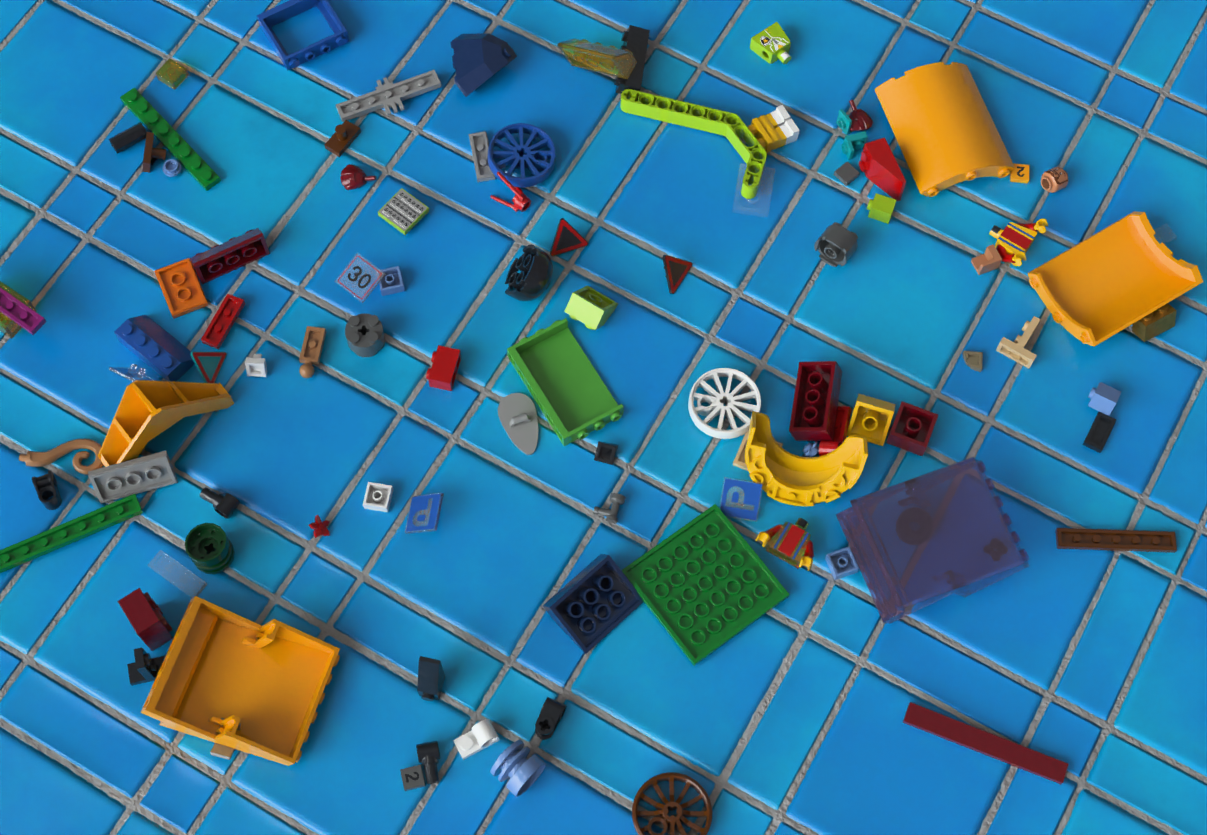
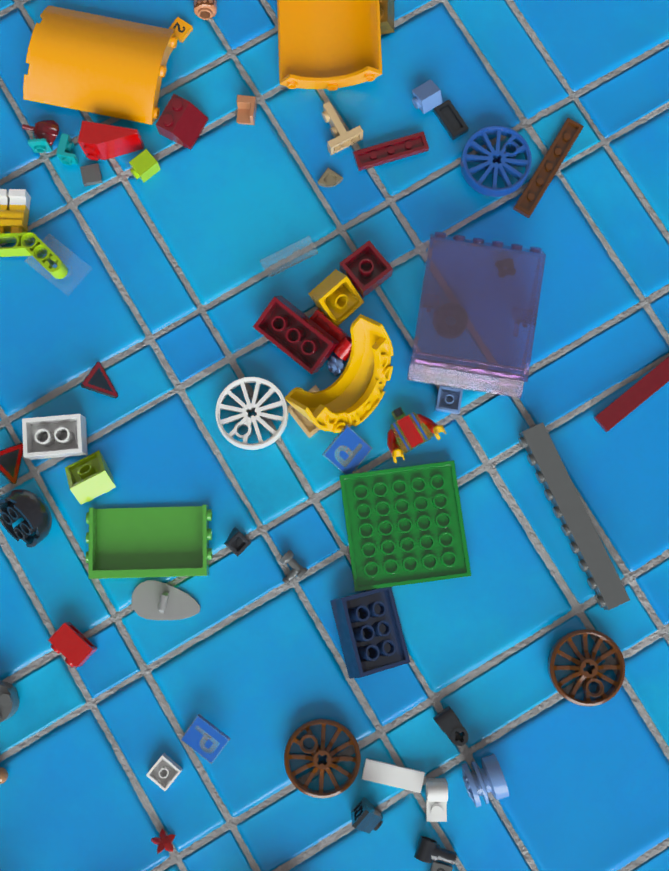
camera: 60 degrees left, 15 degrees up
(467, 590) = (314, 757): none -> reddish brown piece
(477, 690) = (393, 775): none -> white tile
(608, 262) = (54, 436): none -> white brick
(803, 730) = (574, 517): none -> dark grey brick
(836, 245) = (158, 226): dark grey brick -> none
(881, 363) = (289, 256): none -> clear tile
(939, 216) = (181, 122): none -> dark red slope
(1016, 240) = (243, 74): torso -> none
(1034, 395) = (390, 151): none -> dark red plate
(1094, 488) = (491, 157): none -> blue piece

